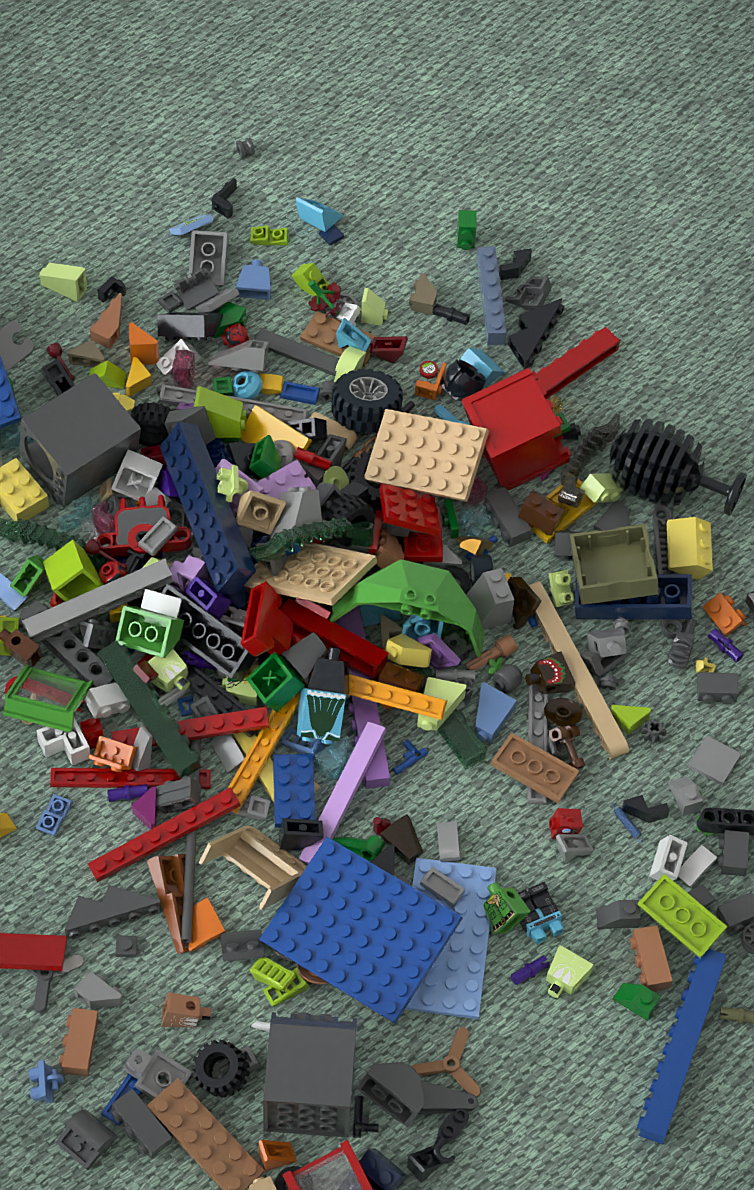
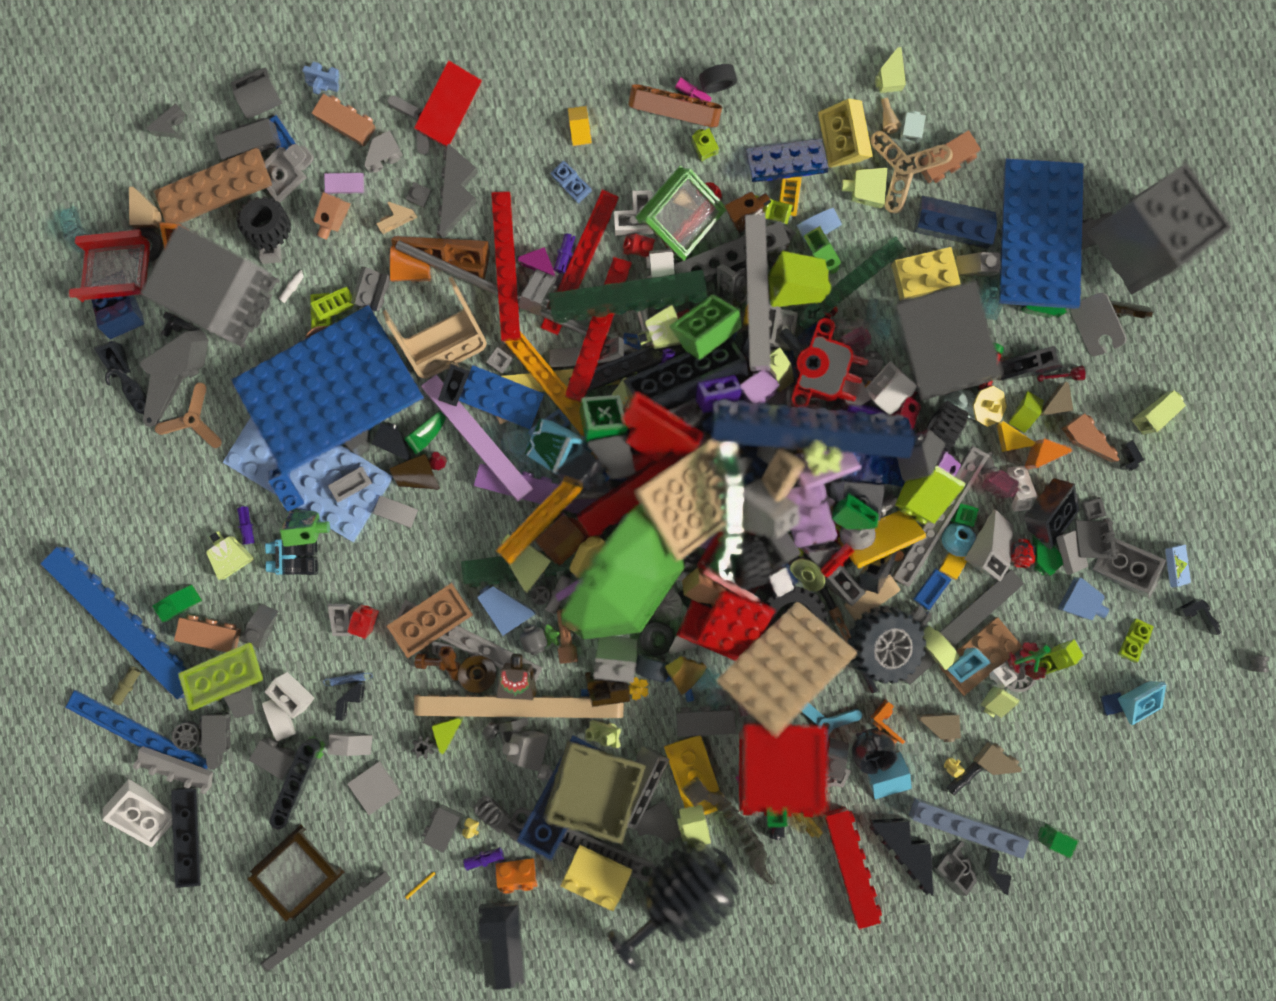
camera: 115 degrees right, 30 degrees up
(93, 547) = (820, 312): dark red hinge -> none
(105, 490) = (895, 358): tan slope -> none
(111, 571) = (782, 318): red head -> none
(113, 753) = (603, 251): orange bracket -> none
(142, 756) = (595, 276): light grey slope -> none
(144, 1020) = (344, 183): none -> lavender tile
(145, 672) = (660, 303): tile -> none
(157, 951) = (401, 216): none -> tan slope
(158, 536) = (806, 375): light grey tile -> none
(161, 603) = (726, 345): white slope -> none
(388, 347) = (946, 696): dark red slope -> none
(409, 756) = (496, 517): blue hose -> none
(415, 344) = (943, 725): none -> dark tan slope
(428, 369) = (908, 725): tile -> none
(446, 324) = (953, 767): none -> light yellow piece
(450, 519) = (719, 666): green plate -> none
(470, 941) = (285, 489): none -> blue bracket
(542, 512) = (690, 757): reddish brown slope -> none

